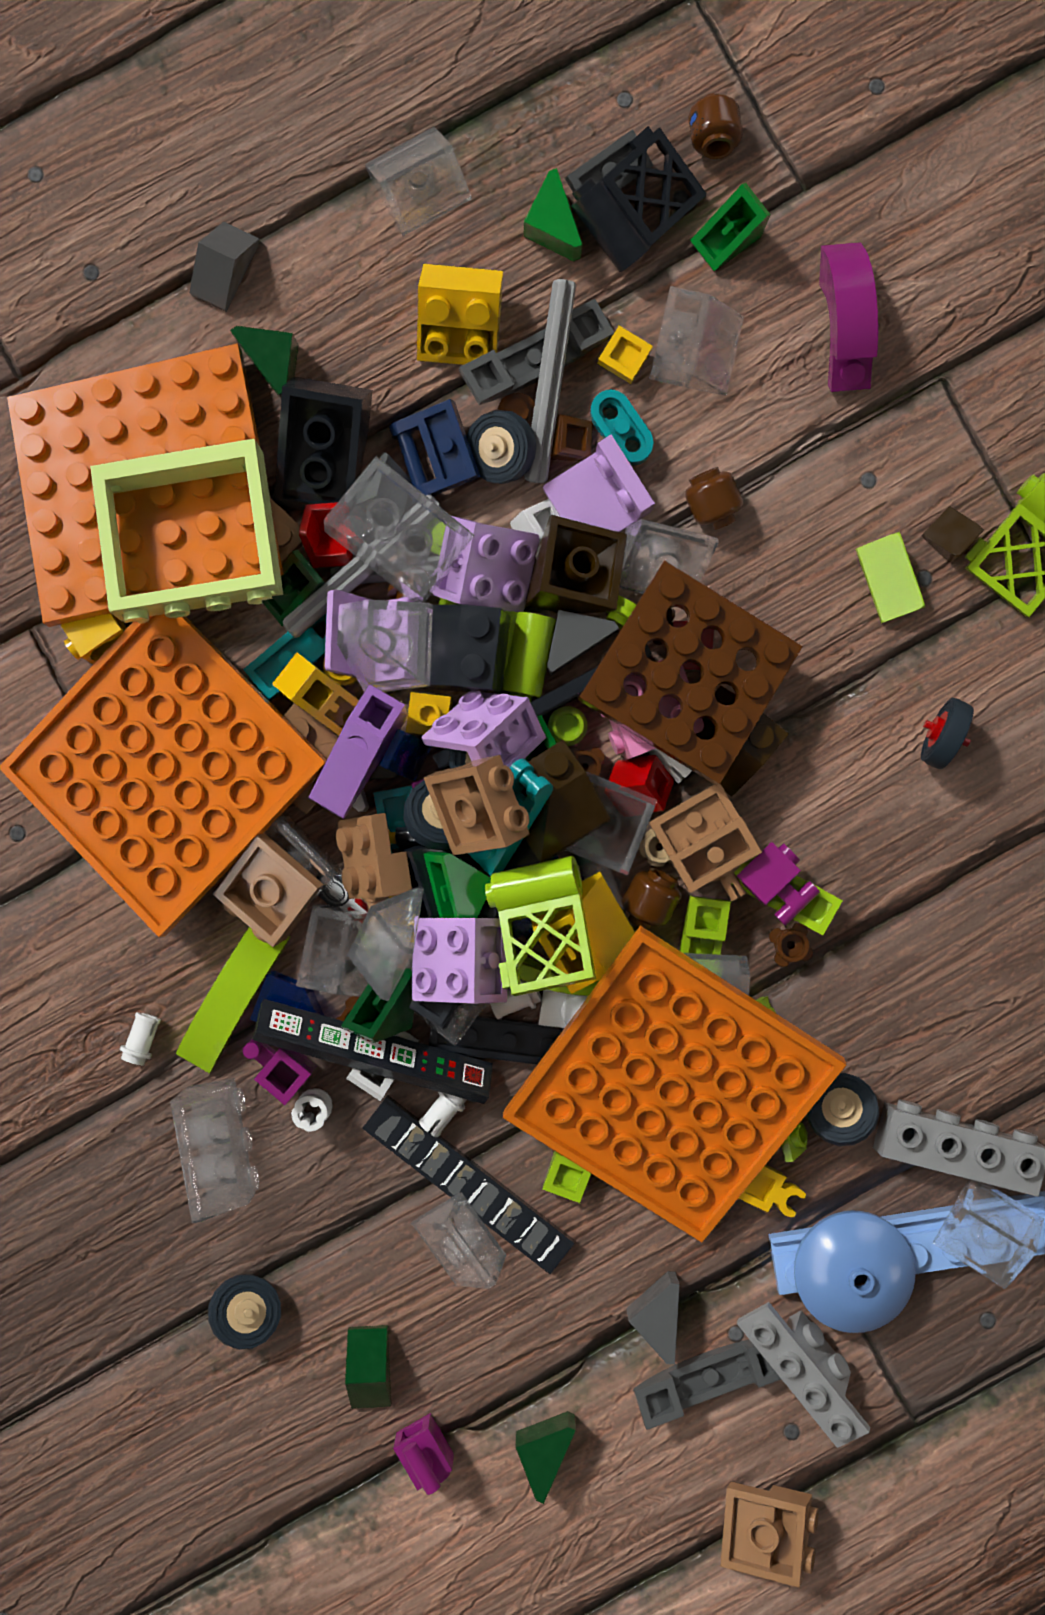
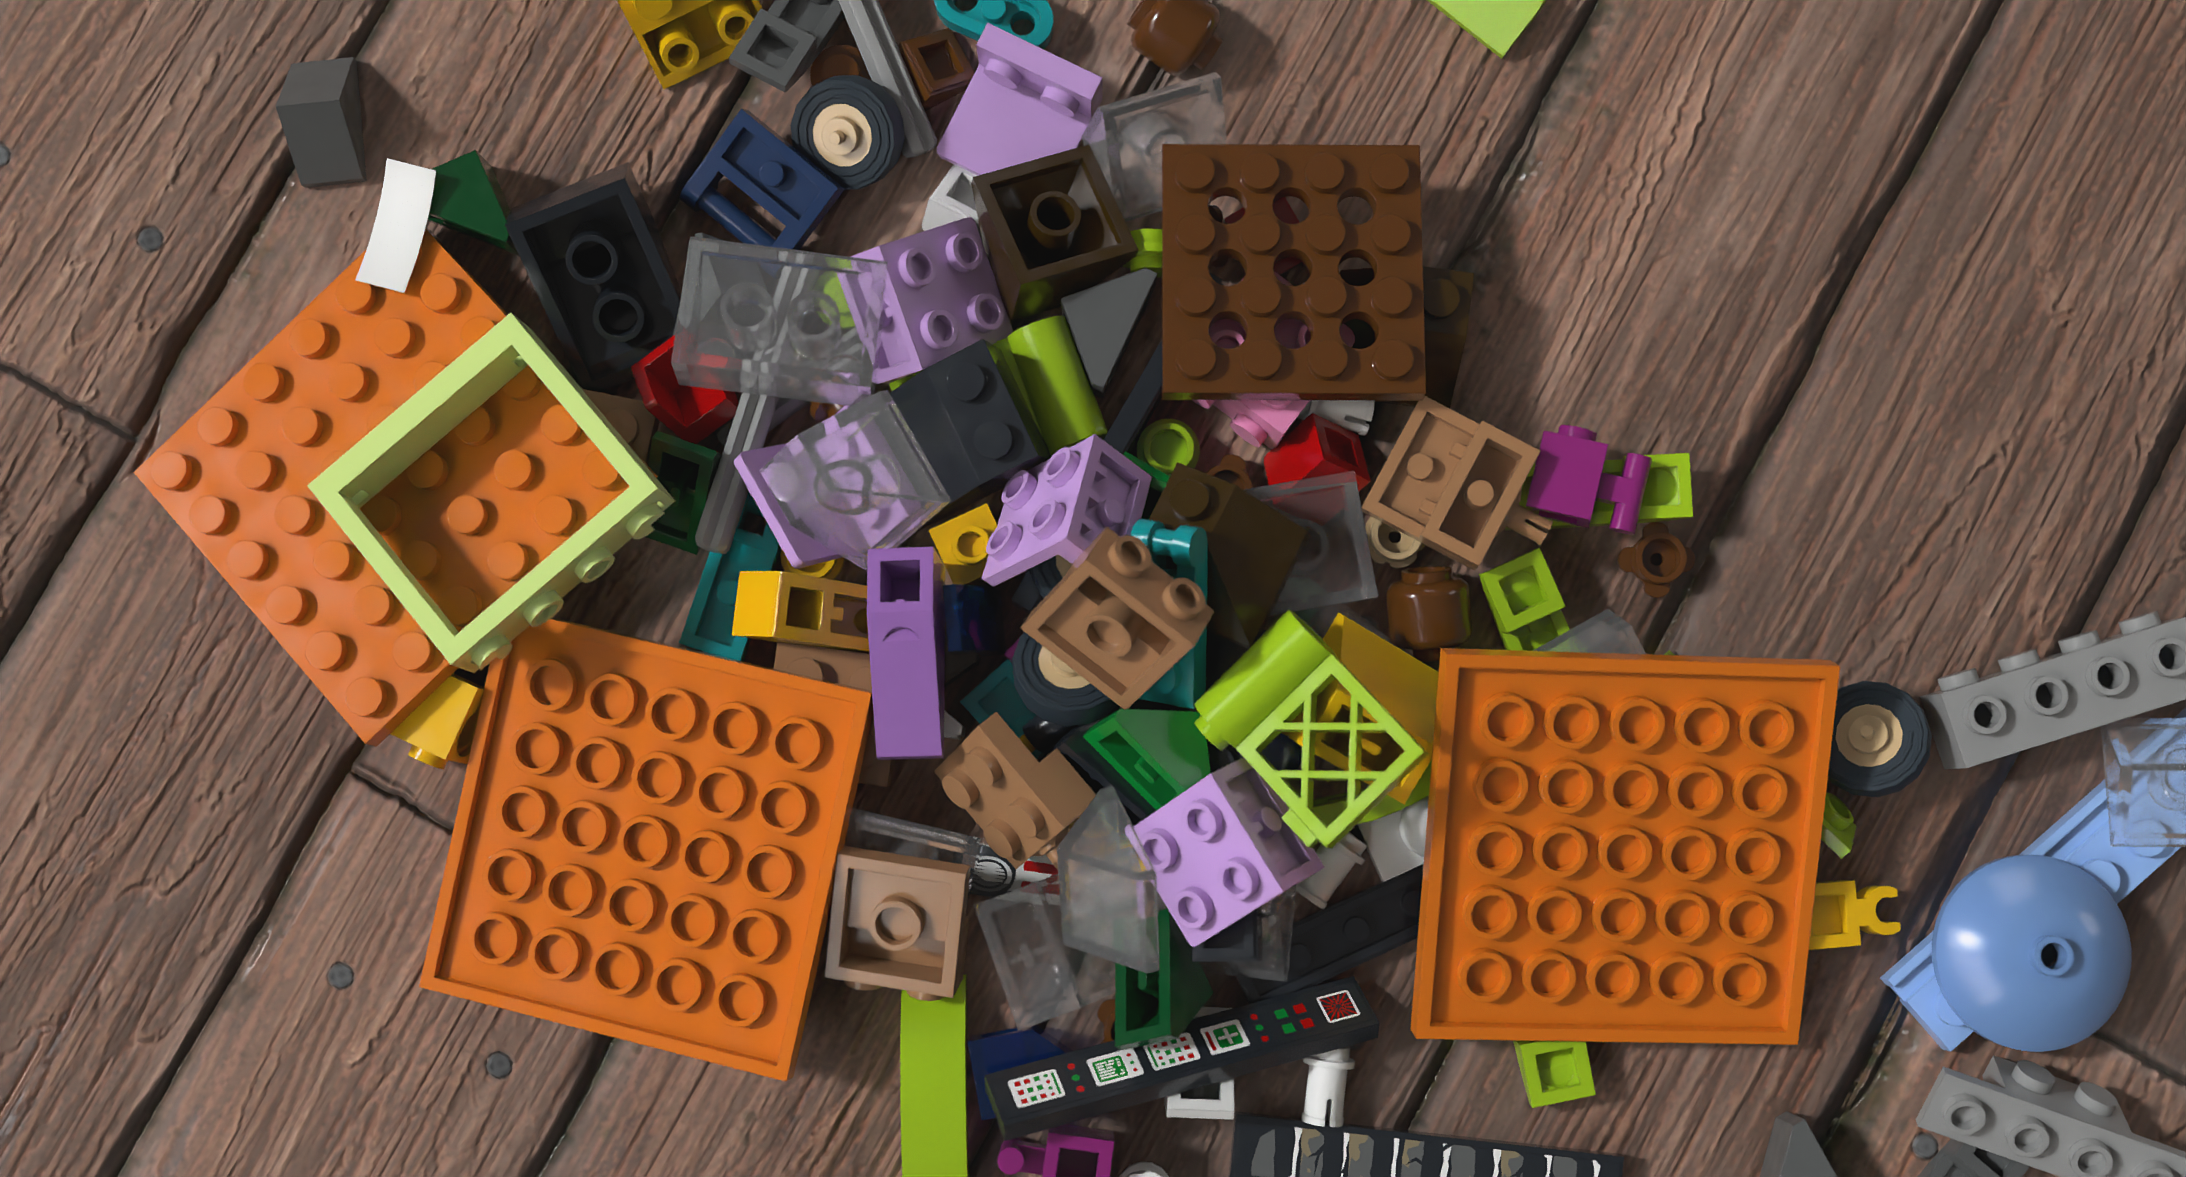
camera: 30 degrees left, 5 degrees down
(225, 350) = (398, 226): none -> white sticker
(947, 733) = (1683, 145): black wheel -> none

